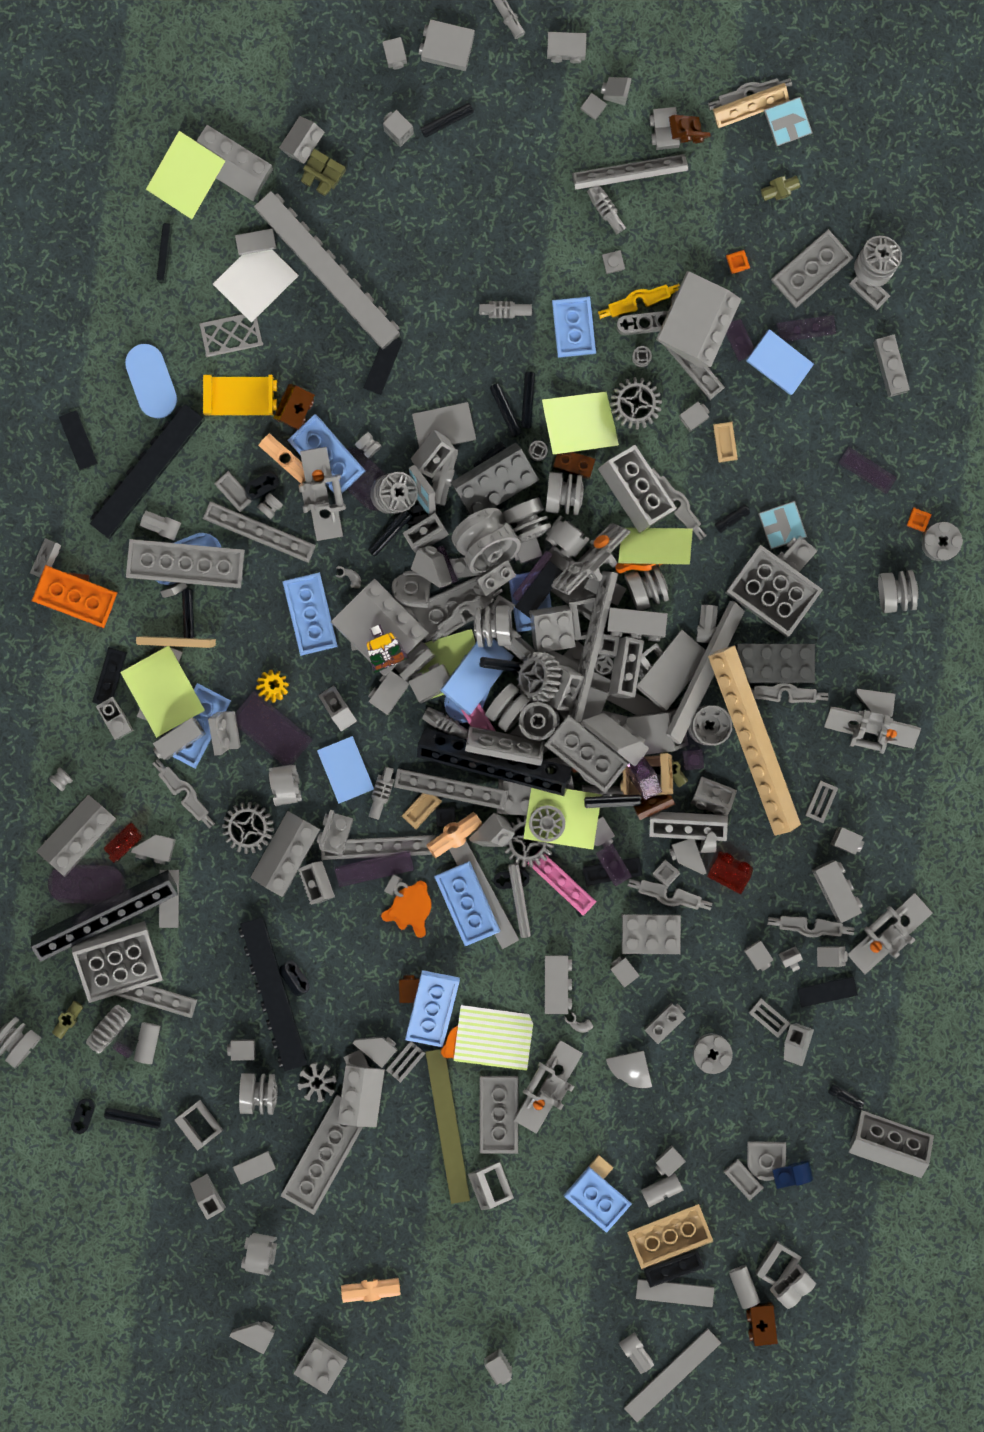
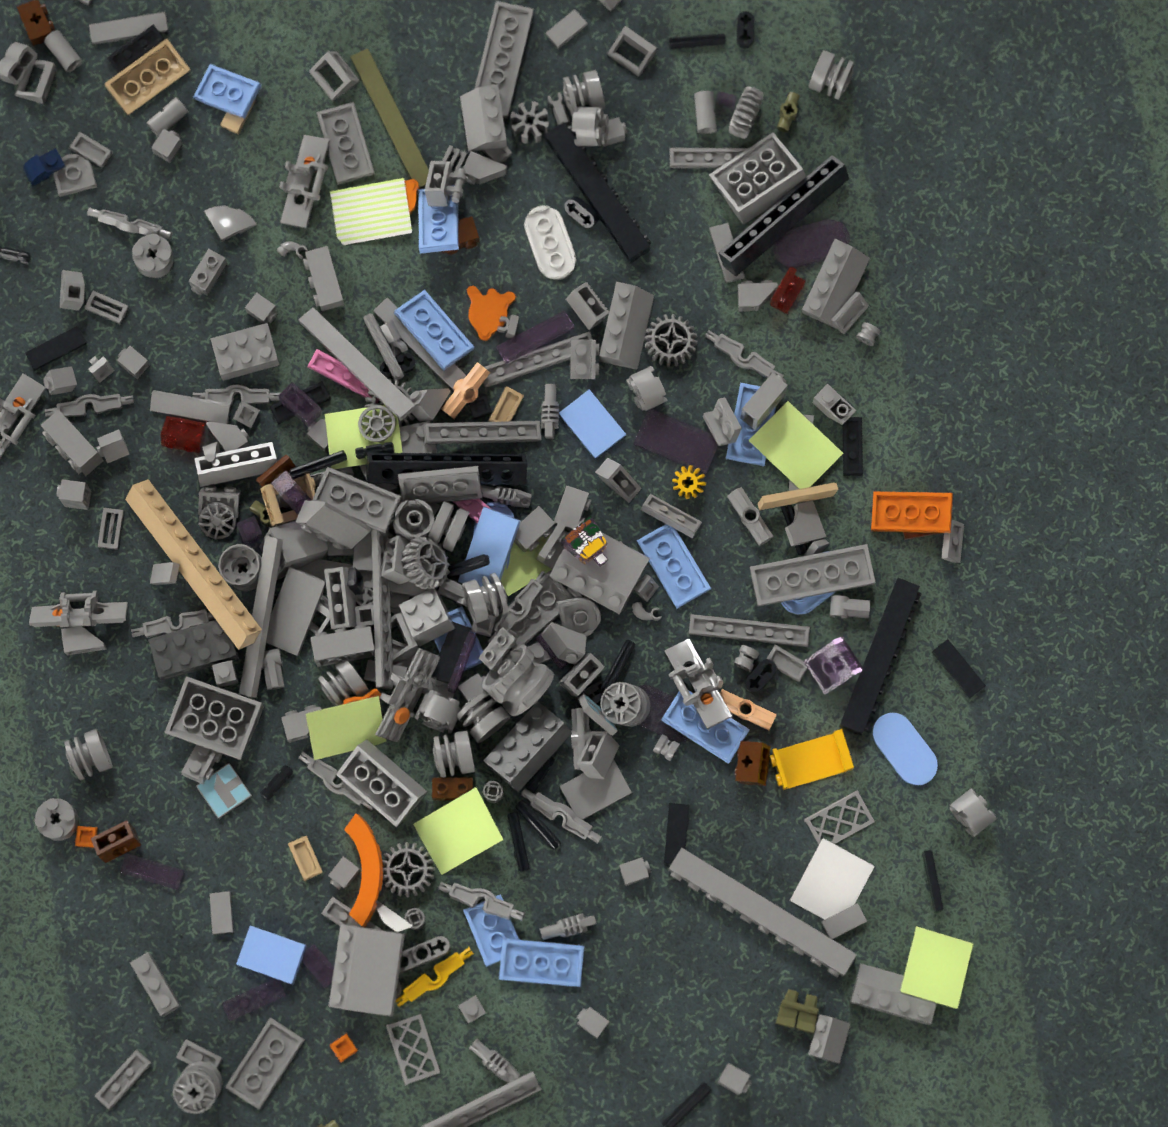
camera: 160 degrees right, 10 degrees down
(71, 805) = (850, 312): none -> light grey tile
(108, 302) = (972, 812): none -> light grey brick
(176, 613) = (806, 525): none -> light grey tile
(192, 473) = (833, 665): none -> clear purple brick
(221, 625) = (757, 526): none -> light grey piece
(261, 1055) = (590, 126): none -> light grey brick
(285, 1085) = (559, 110): none -> light grey bar
(298, 660) = (671, 516): none -> light grey tile
(333, 958) = (550, 242): none -> white tile
(342, 598) = (646, 587): none -> light grey plate
(421, 1042) = (440, 181): none -> light grey brick
(430, 341) = (635, 871): none -> light grey brick
(475, 404) = (570, 820): none -> light grey piece
(507, 907) = (393, 337): none -> light grey bar
(509, 217) = (592, 1022): none -> light grey brick
(539, 284) = (541, 962): none -> light blue tile
(549, 888) = (357, 364): none -> light grey tile
(554, 798) = (378, 448): none -> black axle
(585, 361) = (491, 906): none -> light grey piece
(609, 680) = (355, 581): none -> black tile
(663, 253) = (396, 1043): none -> light grey window
(663, 360) = (392, 919): none -> white sticker
(668, 412) = (371, 869): none -> orange tile
(699, 566) = (296, 723): none -> light grey slope
(716, 896) = (190, 407): none -> light grey tile
(720, 778) = (217, 520): none -> light grey wheel
(734, 1098) = (121, 222): none -> light grey piece
(752, 631) = (225, 674): none -> light grey brick
(783, 741) = (164, 573): none -> light grey tile
(799, 878) = (112, 446): none -> light grey brick
(814, 414) = (221, 913): none -> light grey tile
(893, 505) = (116, 841): none -> reddish brown brick
(942, 291) = (123, 1079): none -> light grey tile

